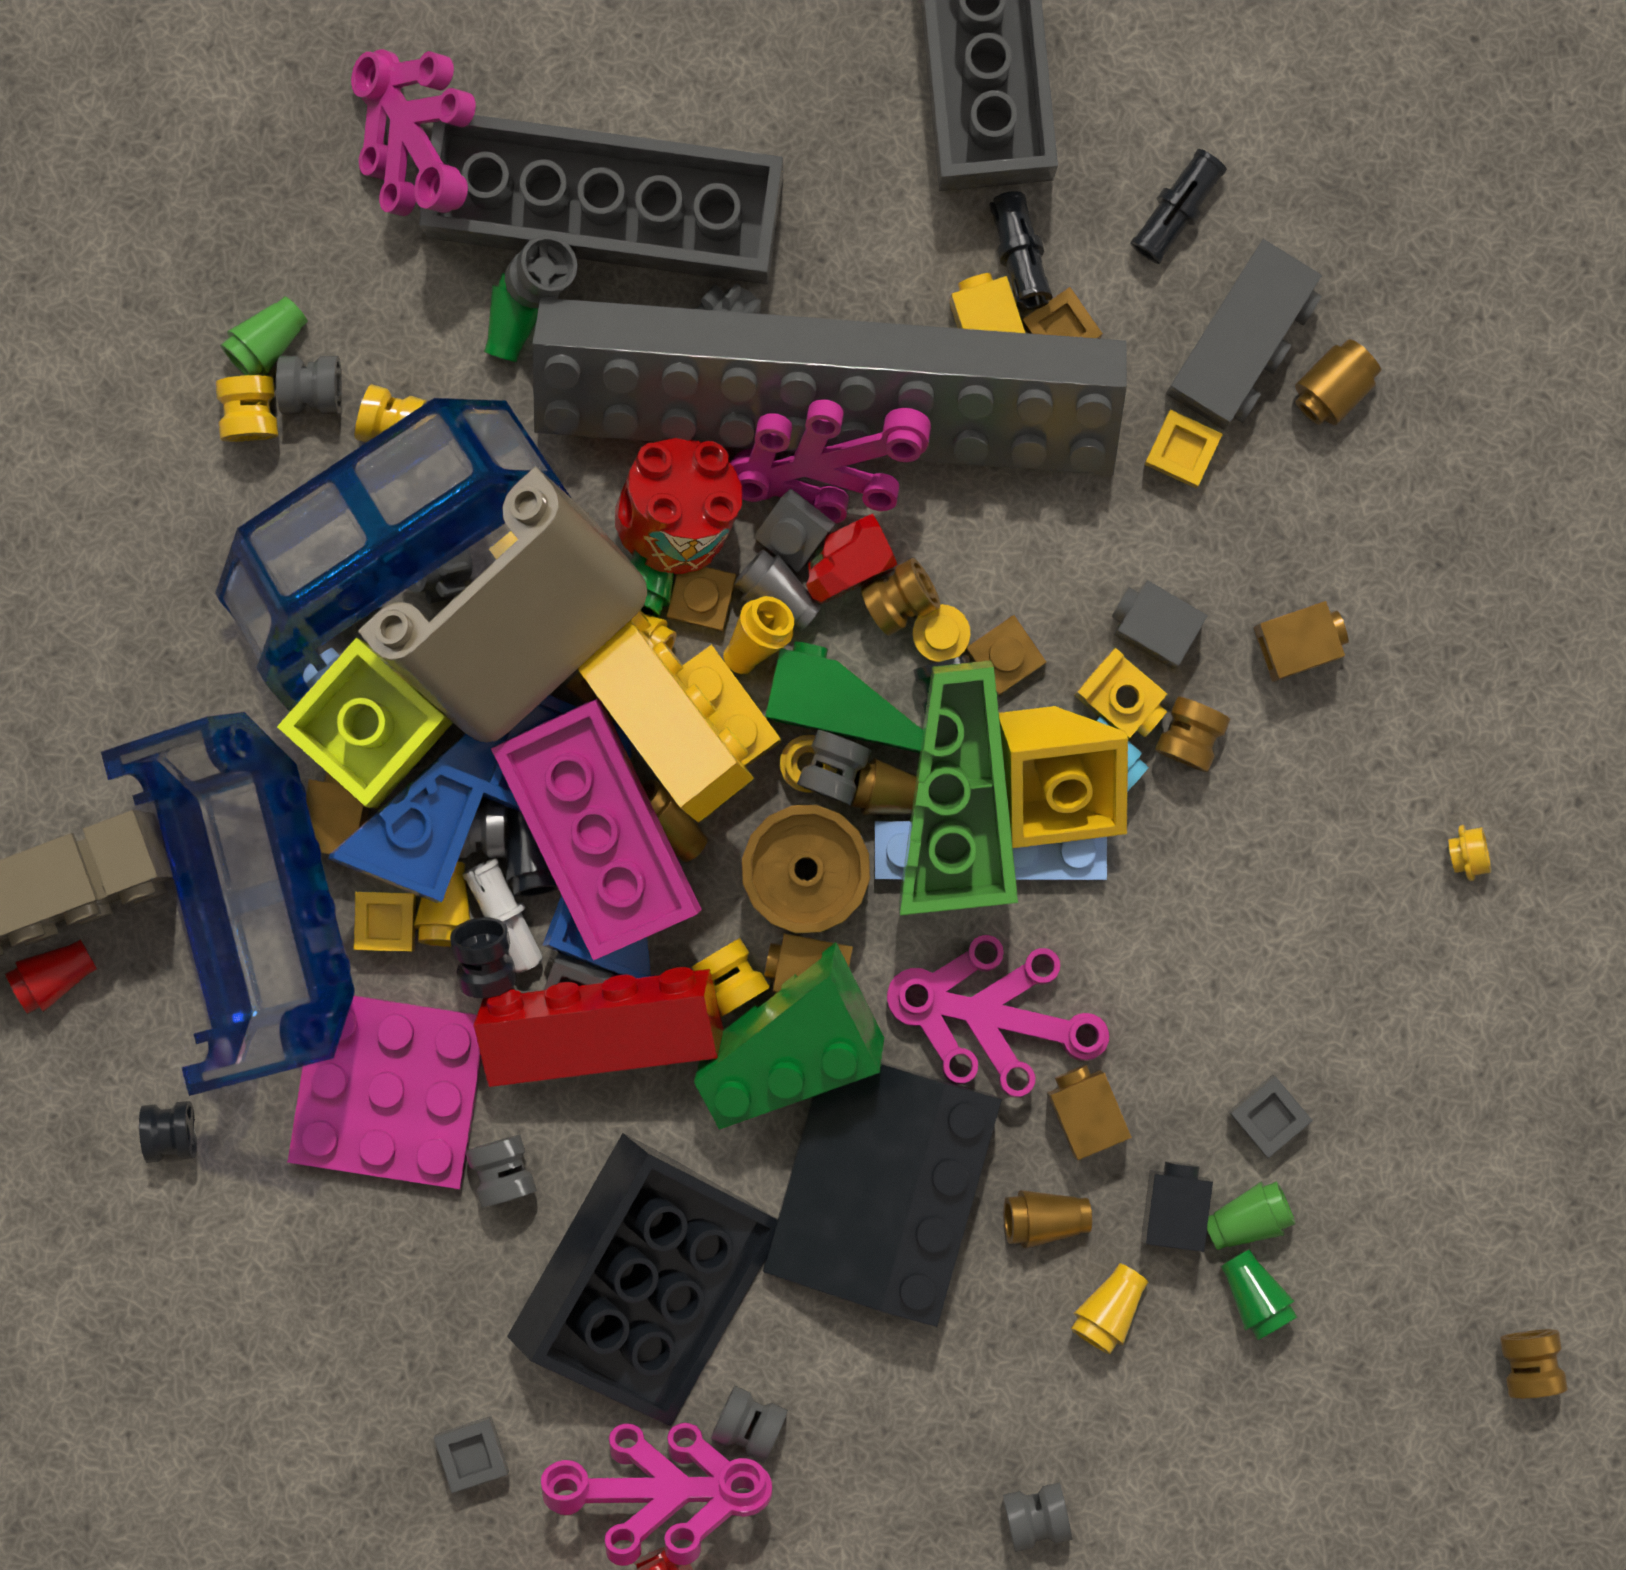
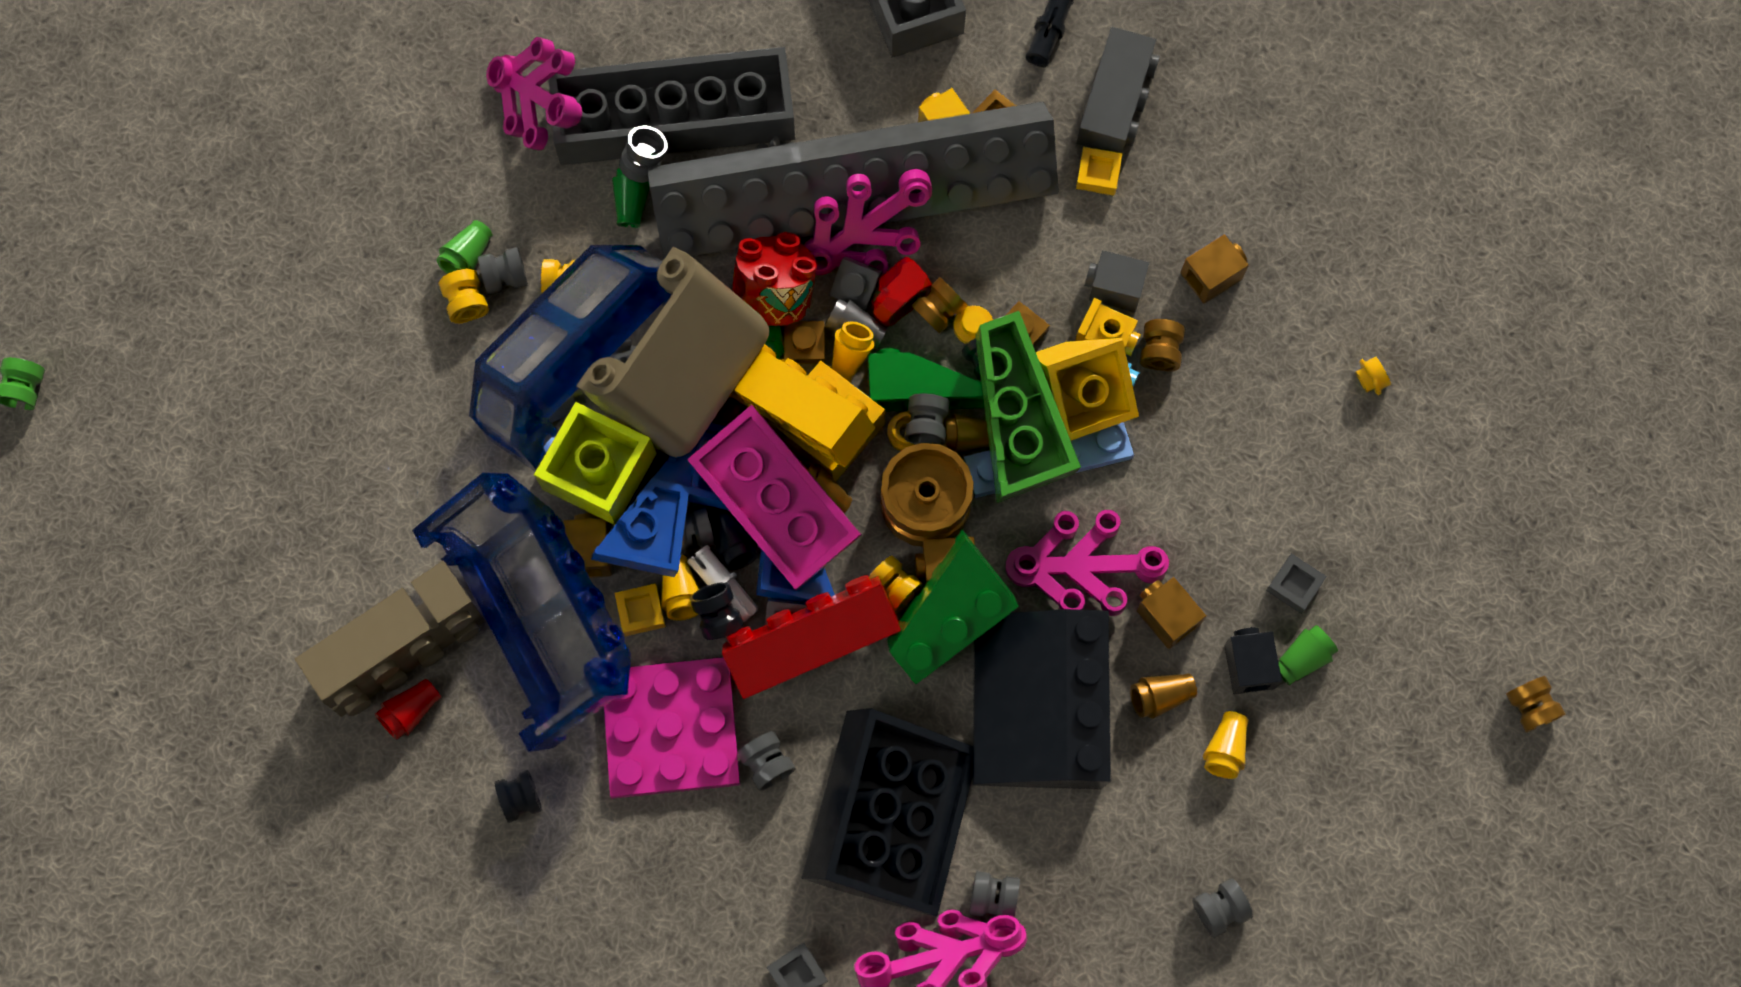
camera: 20 degrees left, 15 degrees down
(1020, 250) = (956, 75): black pin -> none
(1257, 1295) = (1328, 709): green cone -> none
(1337, 383) = (1186, 106): pearl gold brick -> none

